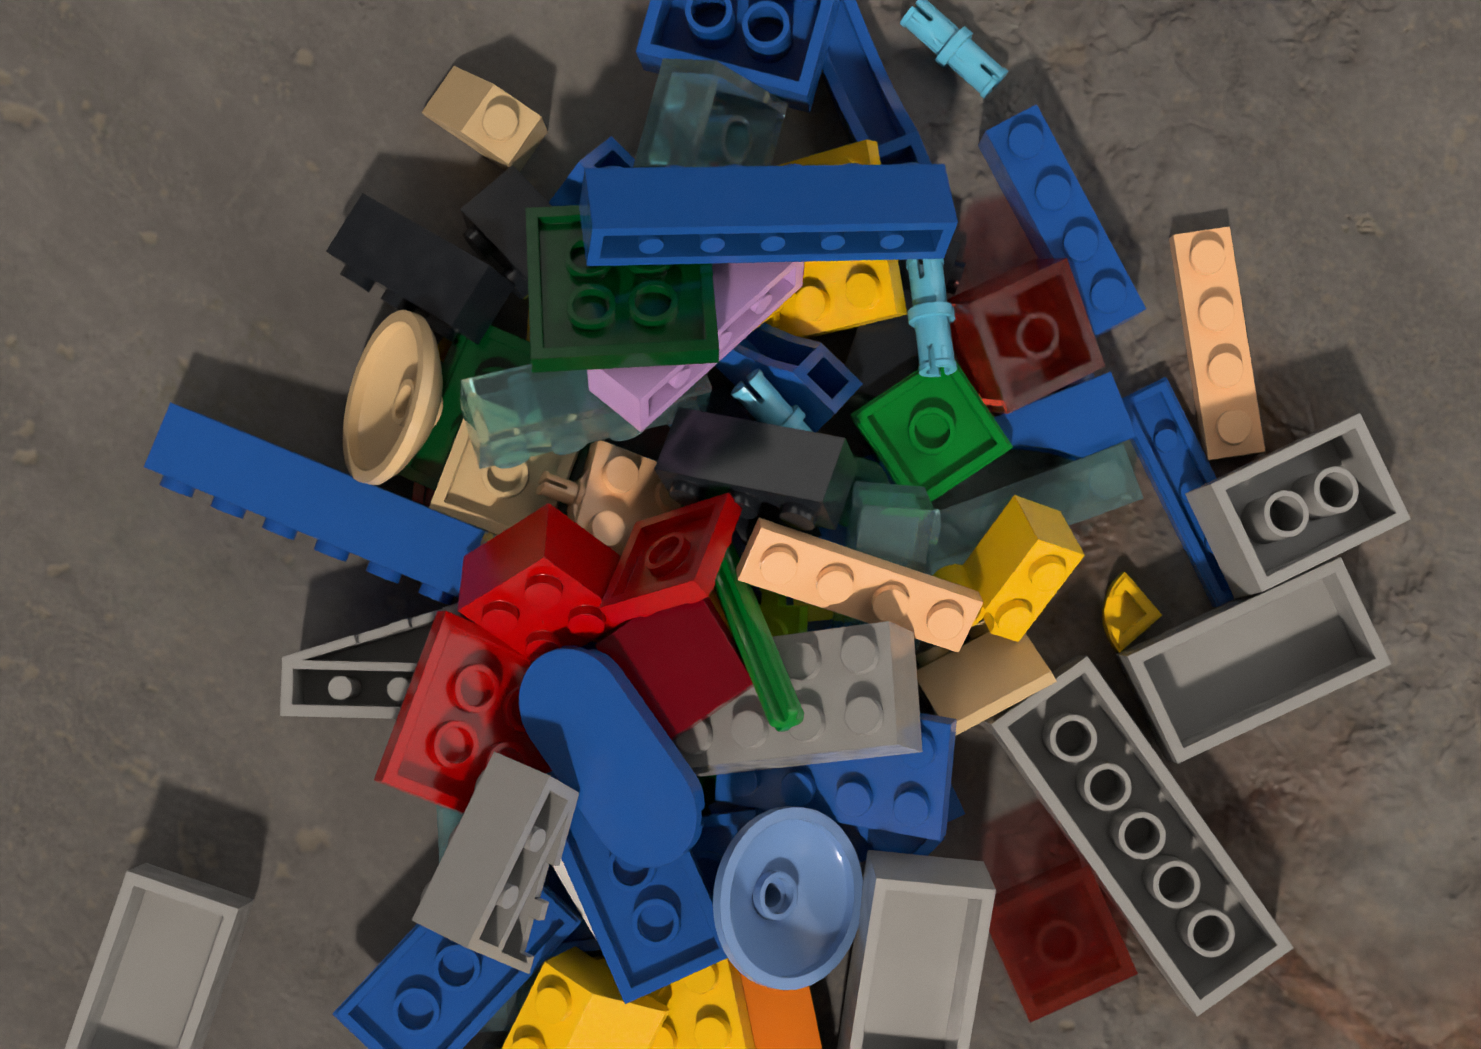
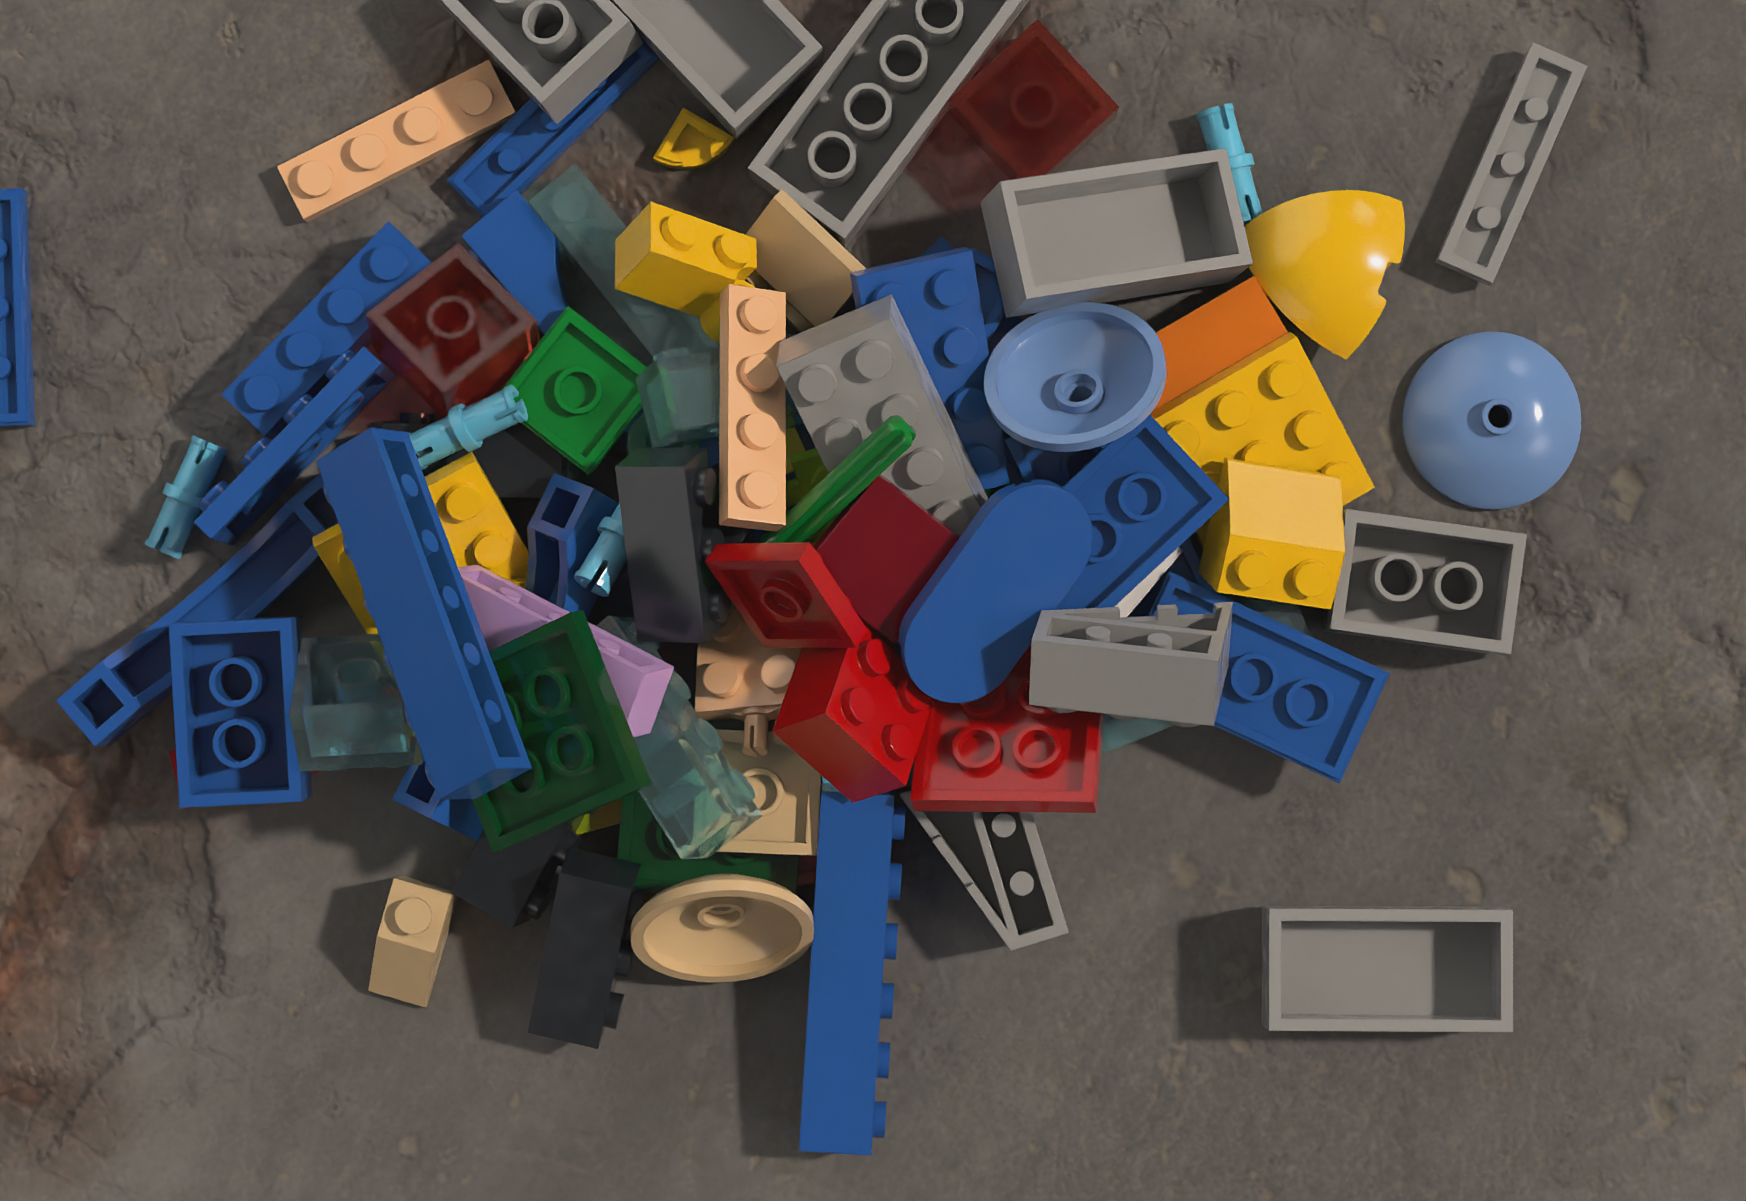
camera: 105 degrees left, 0 degrees up
(976, 173) = (310, 430): none -> blue plate

